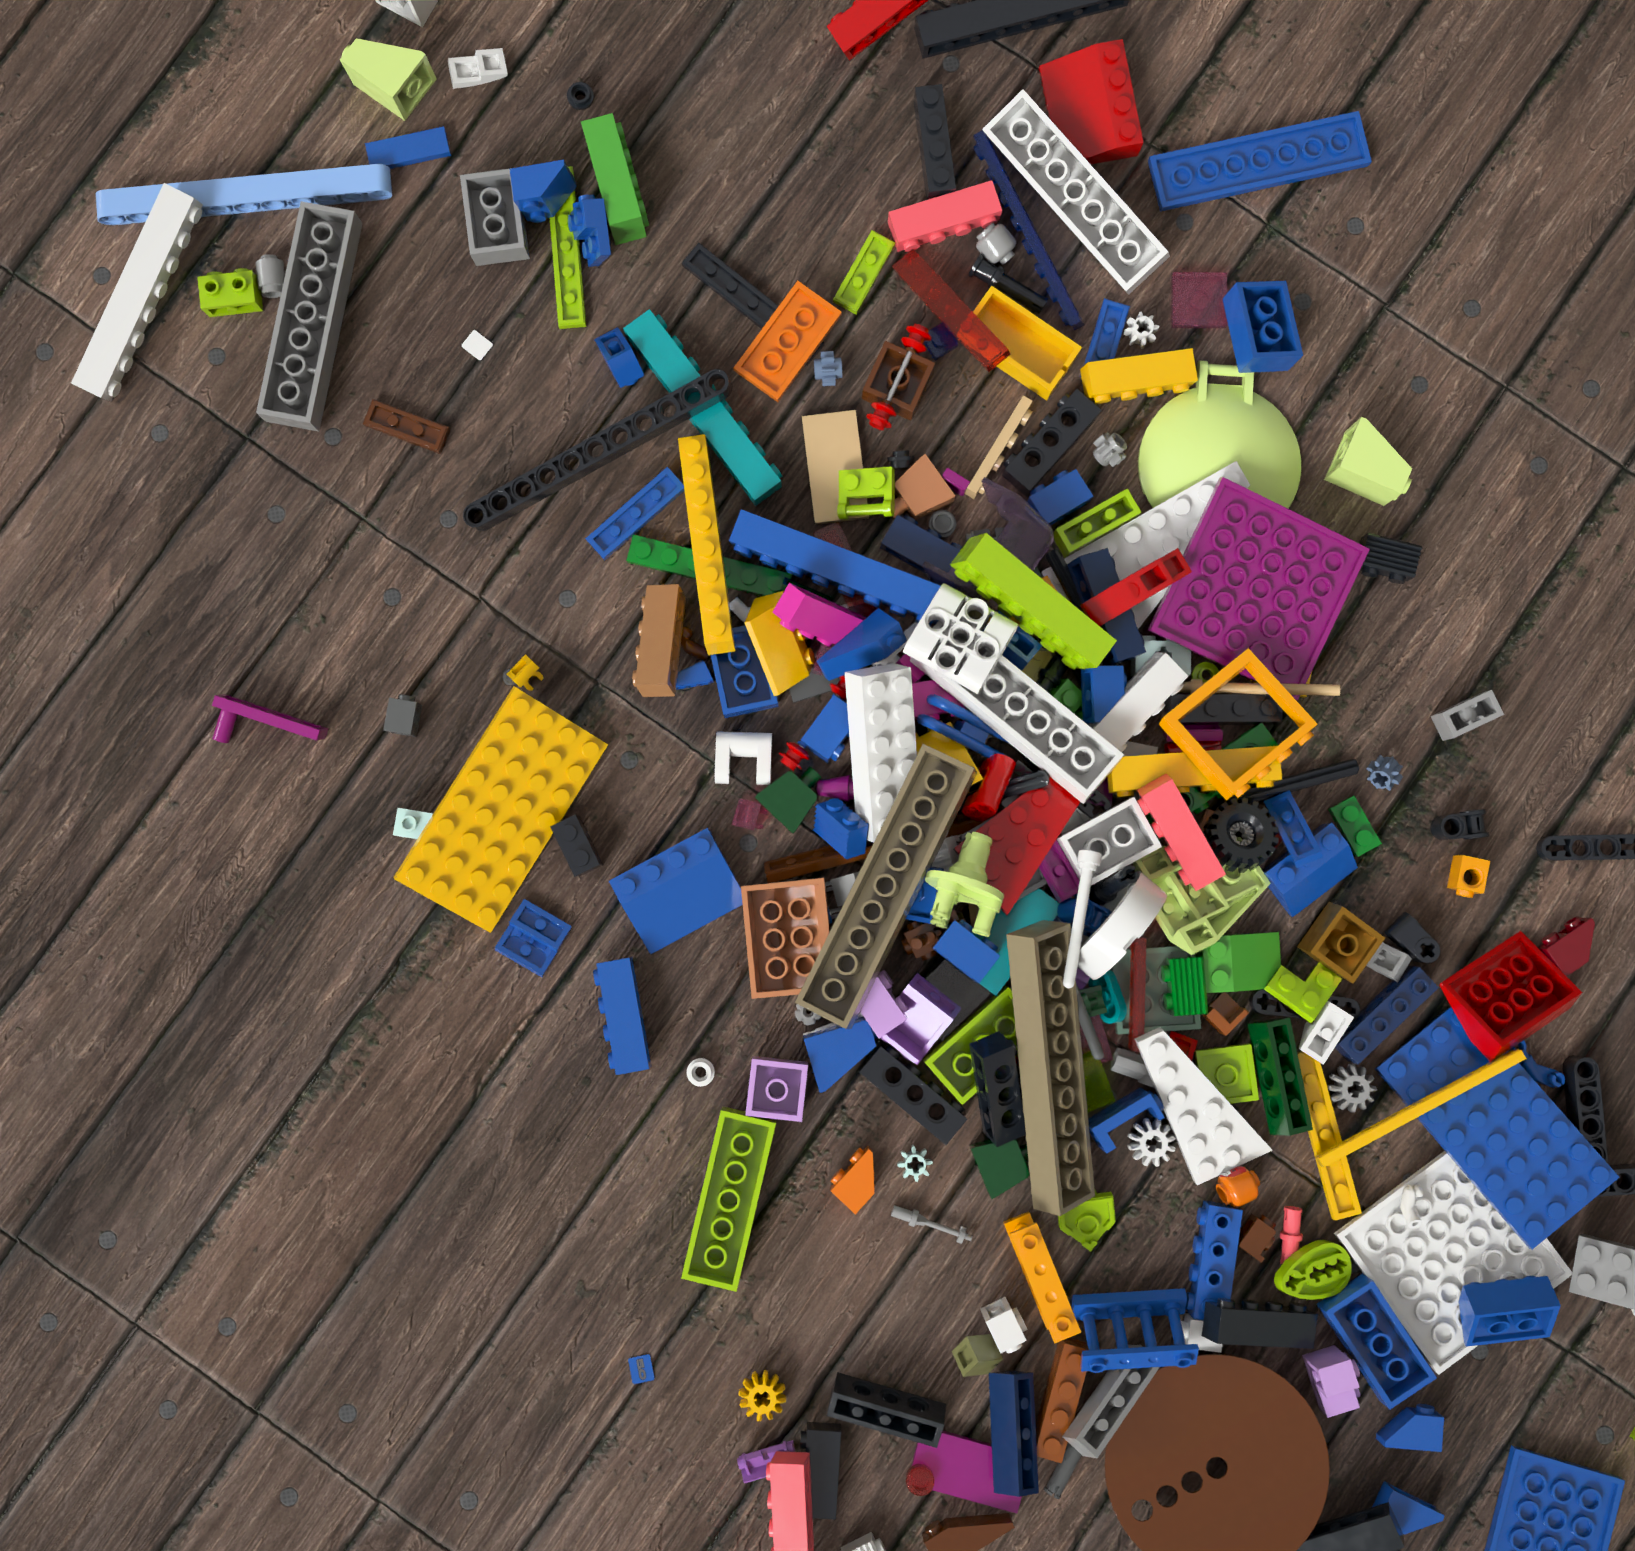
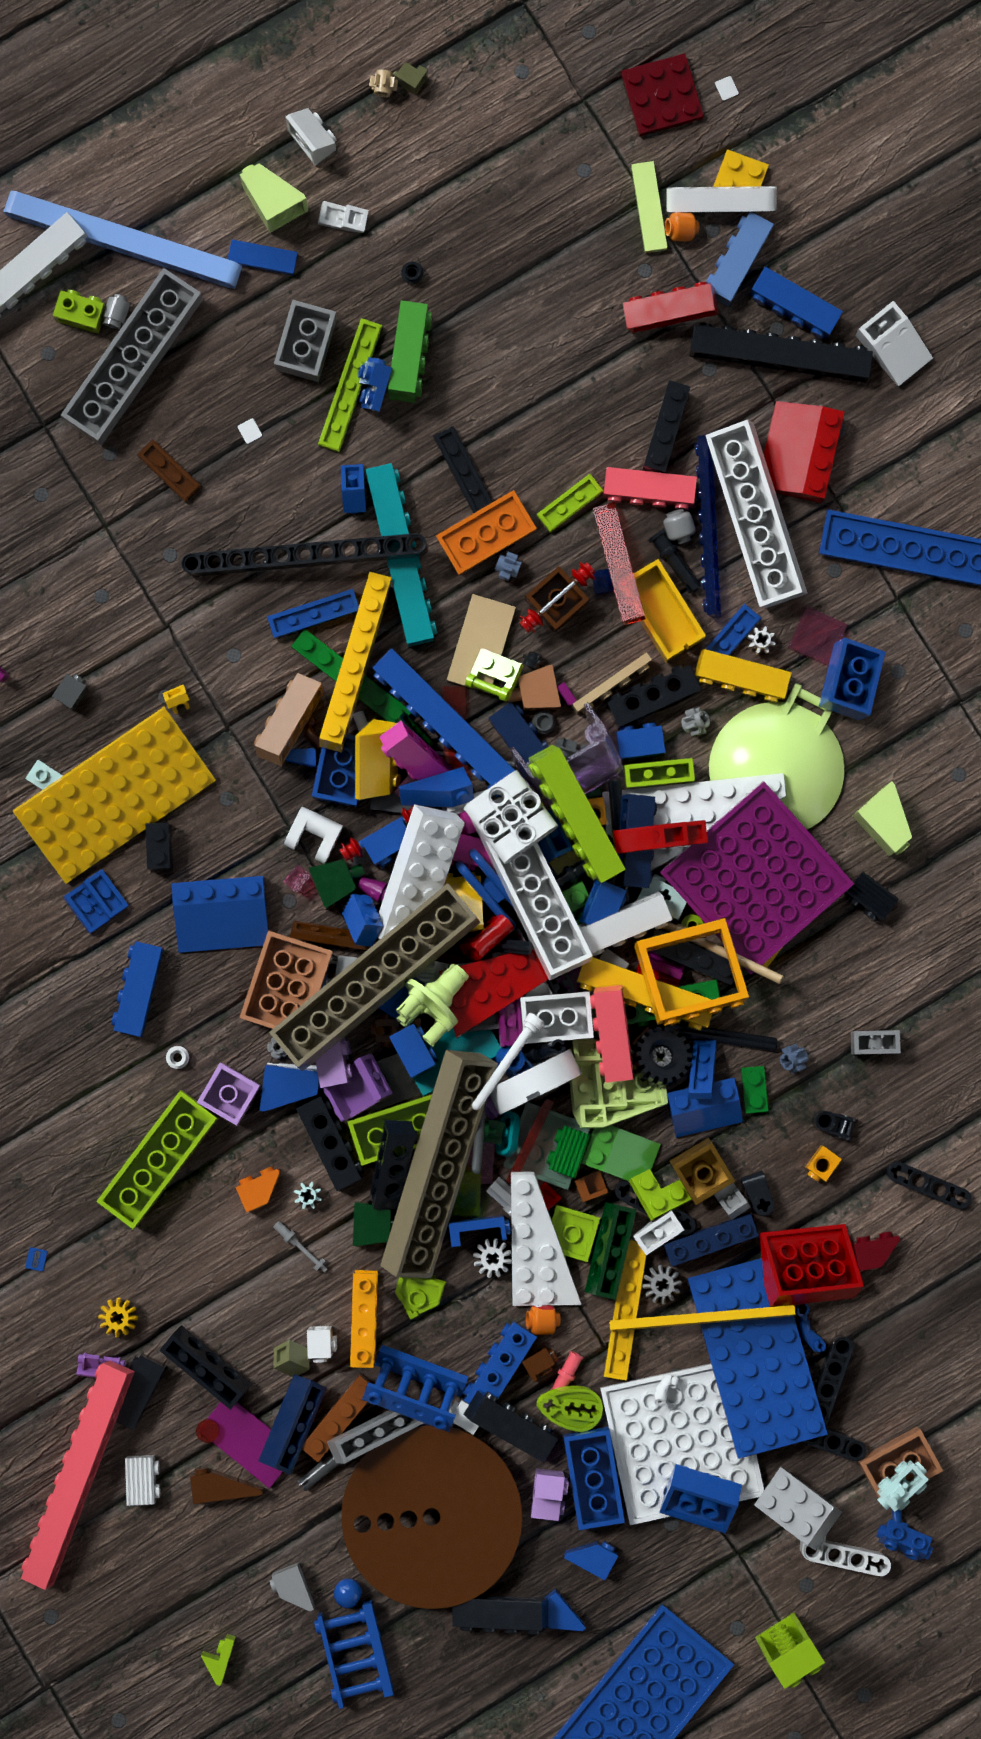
camera: 20 degrees right, 0 degrees up
(541, 189) = (349, 337): blue slope -> none

